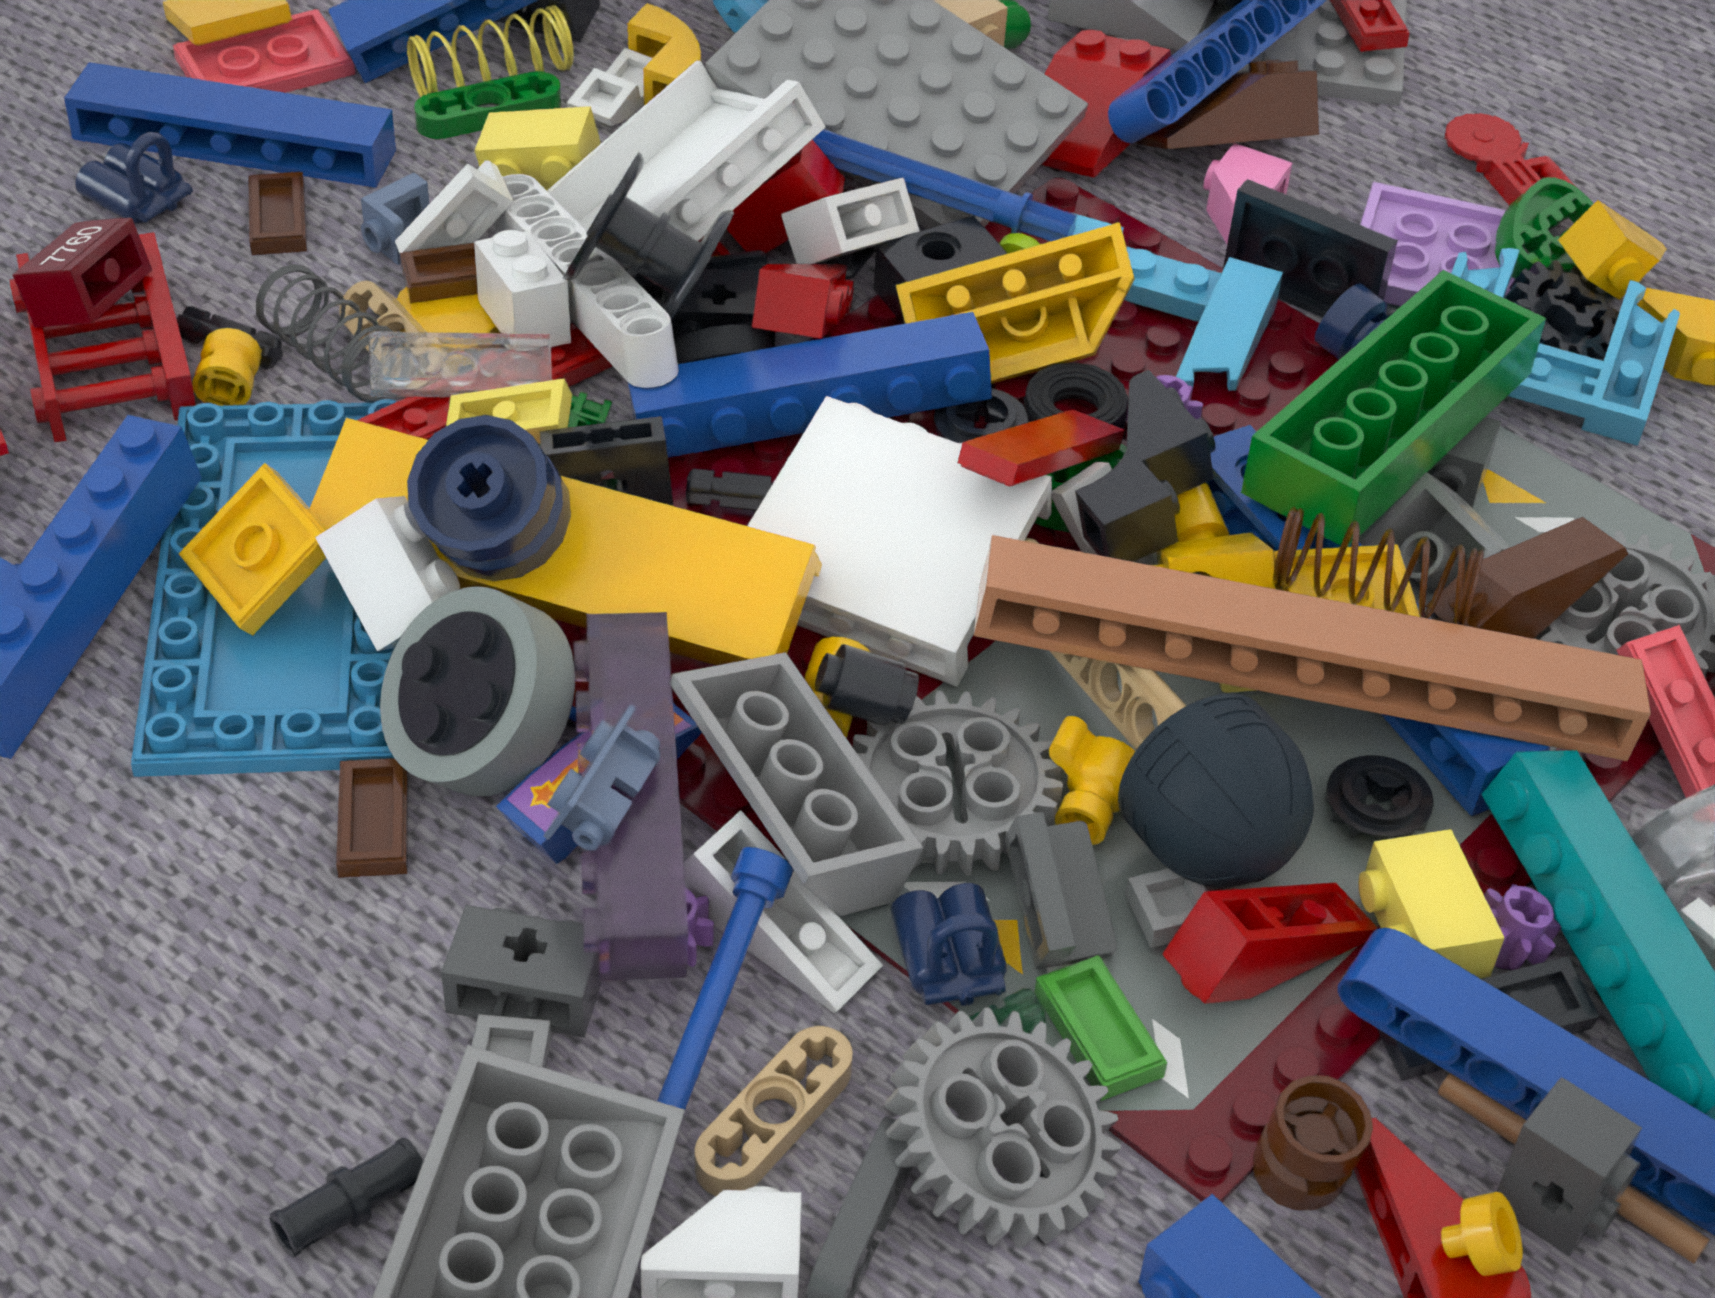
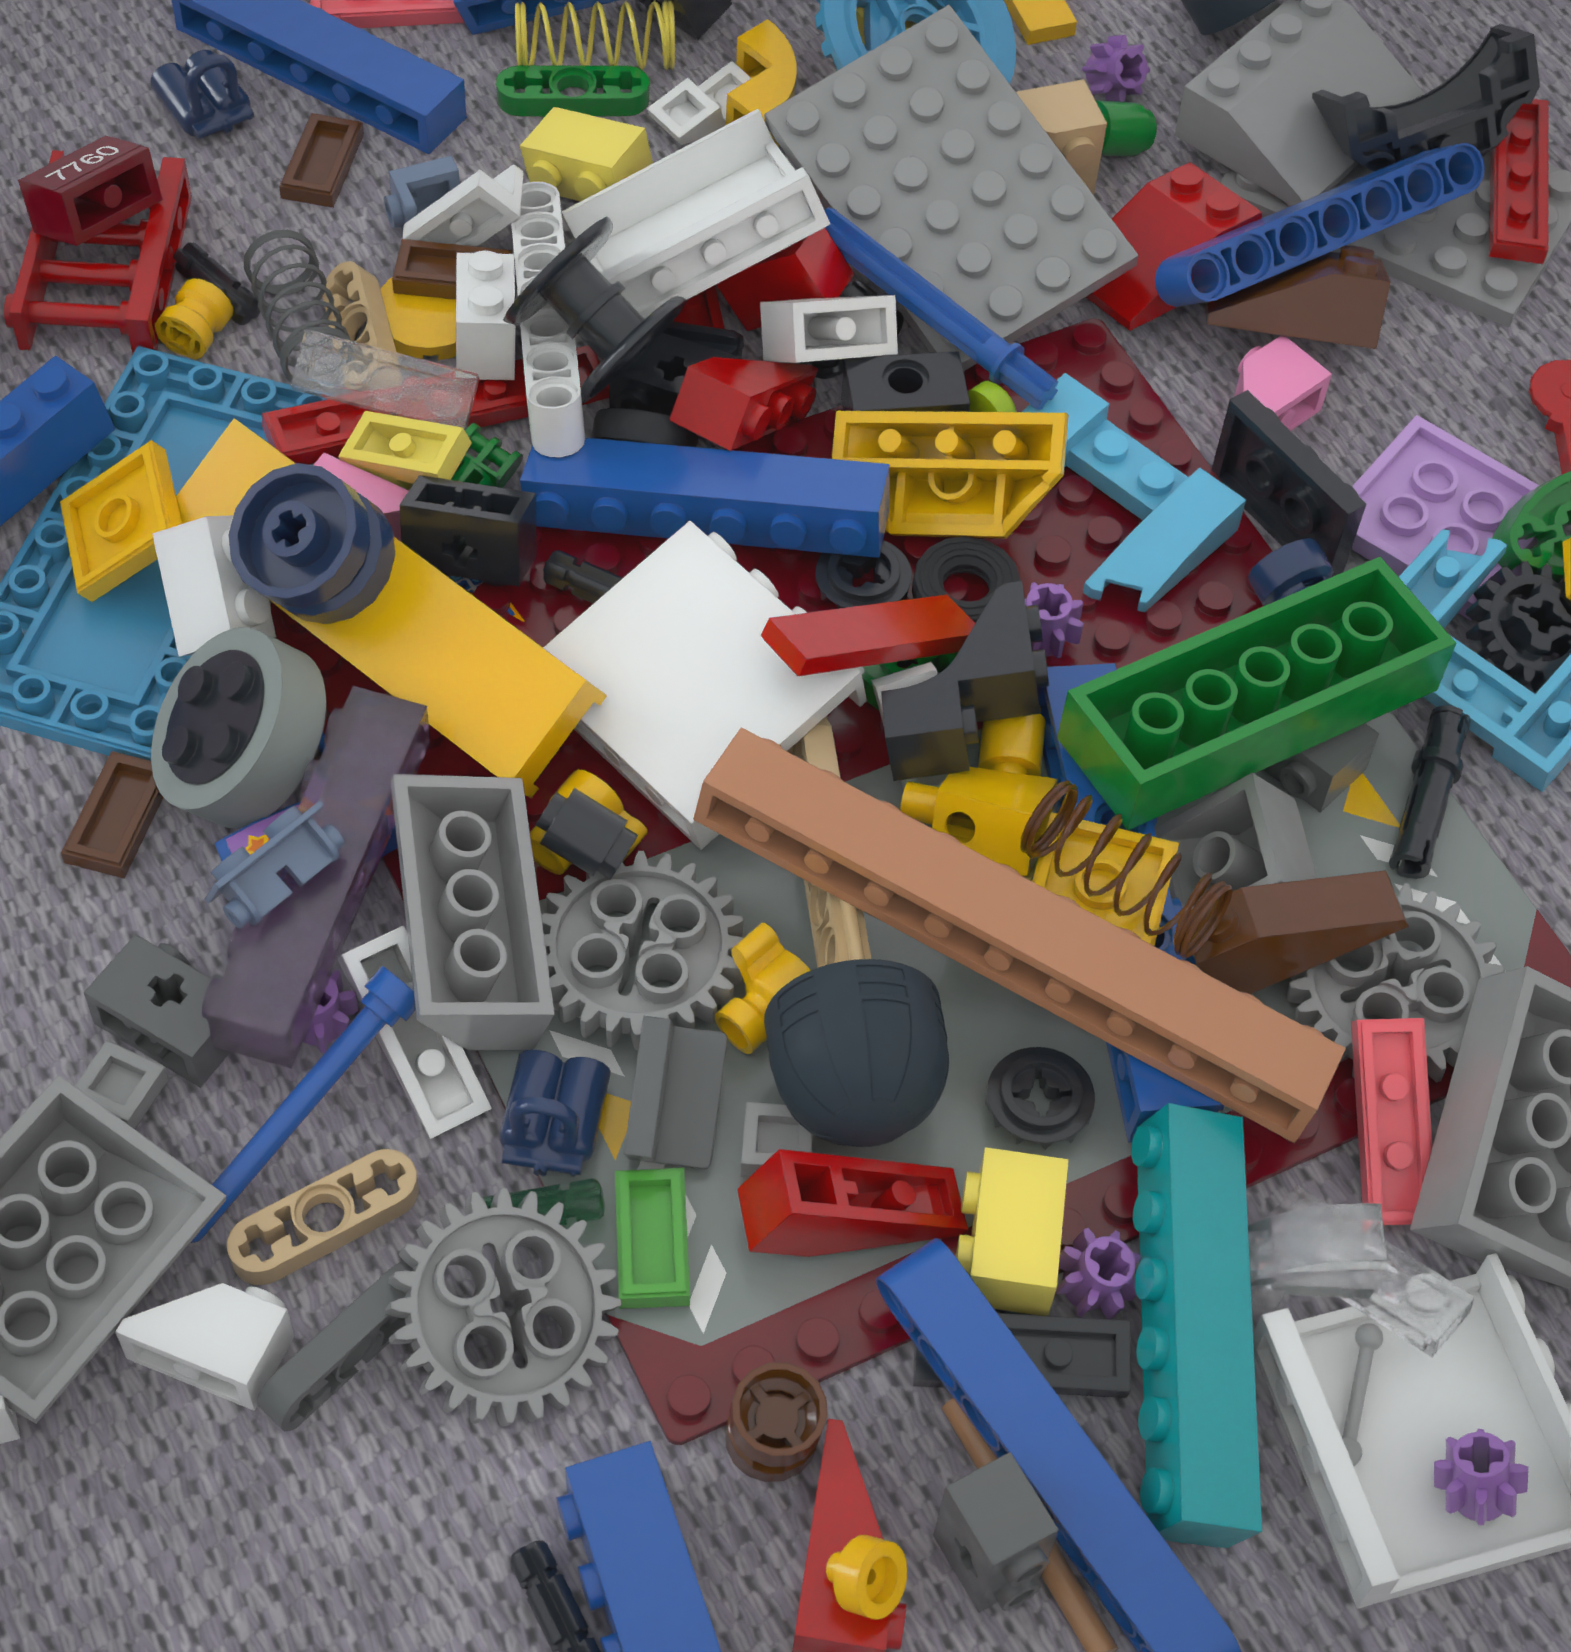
camera: 20 degrees right, 10 degrees up
(1553, 444) = (1434, 773): none -> black pin

